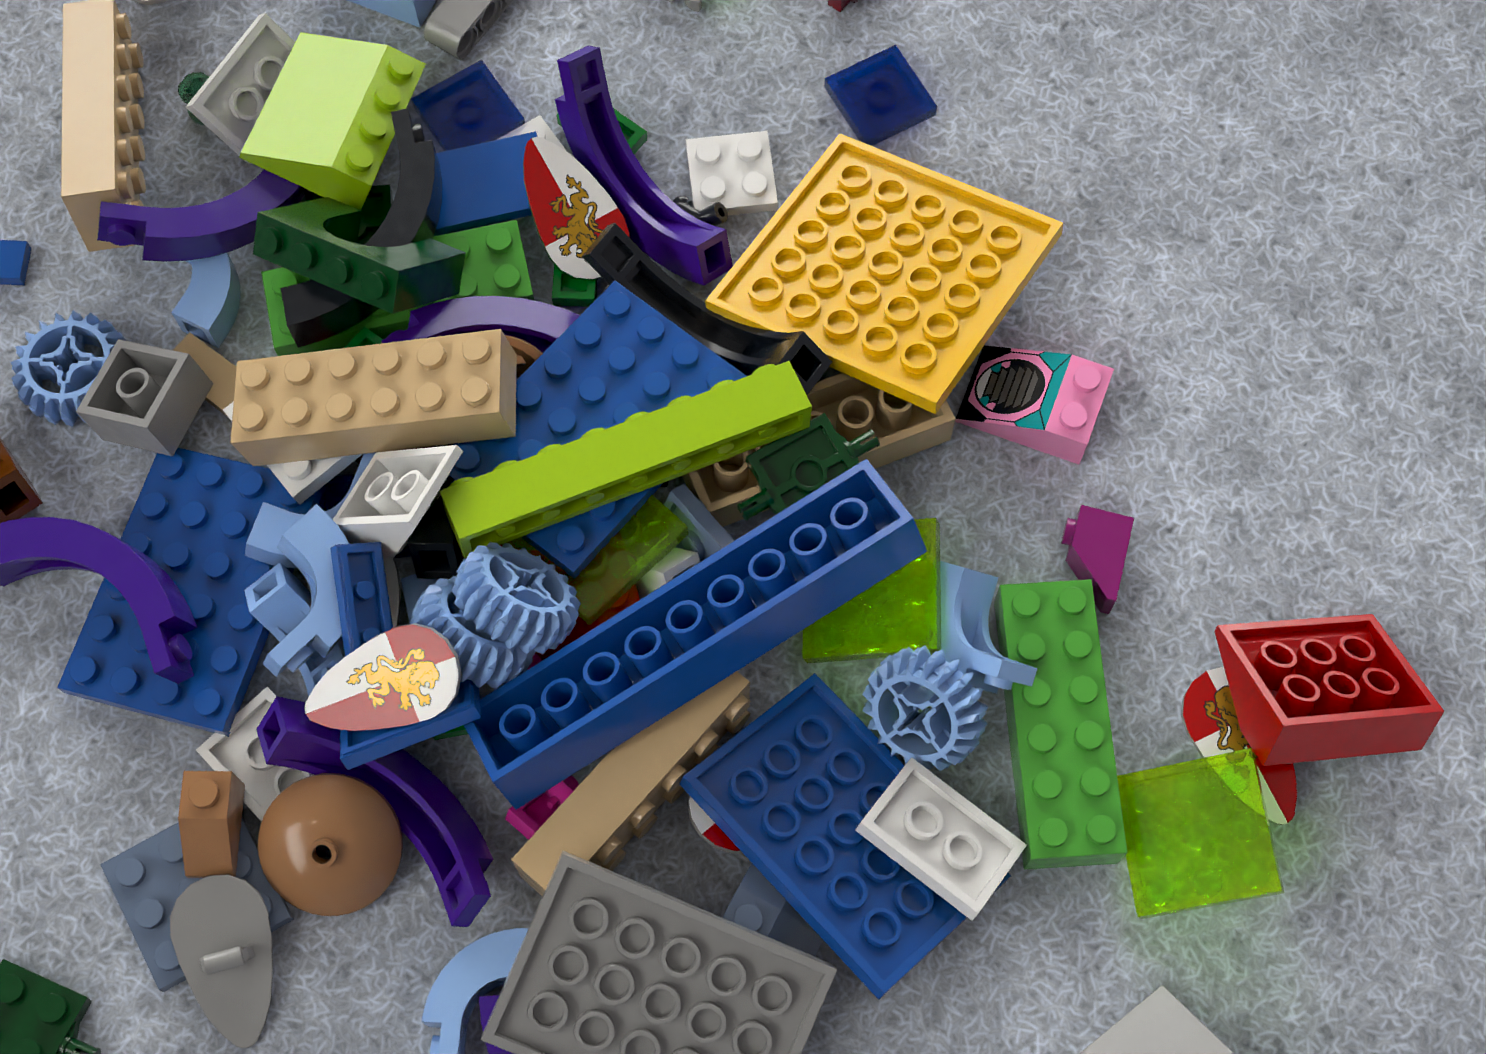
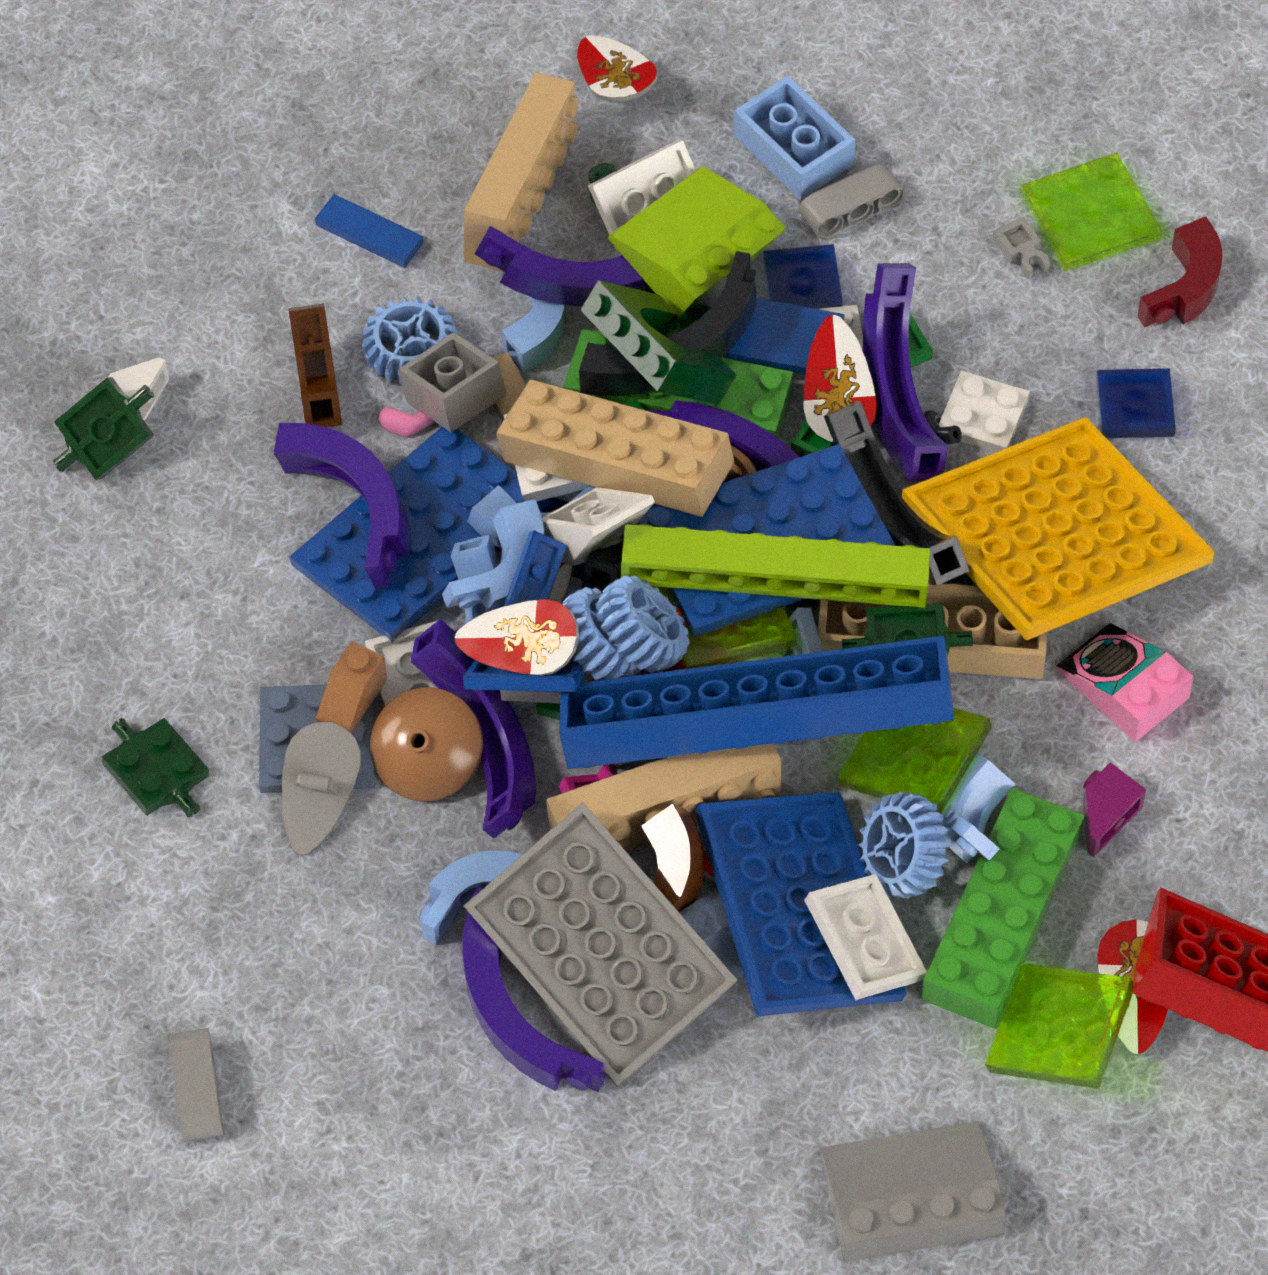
camera: 30 degrees right, 10 degrees down
(110, 467) = (403, 423): none -> bright pink arm
(693, 849) = (678, 855): none -> arch

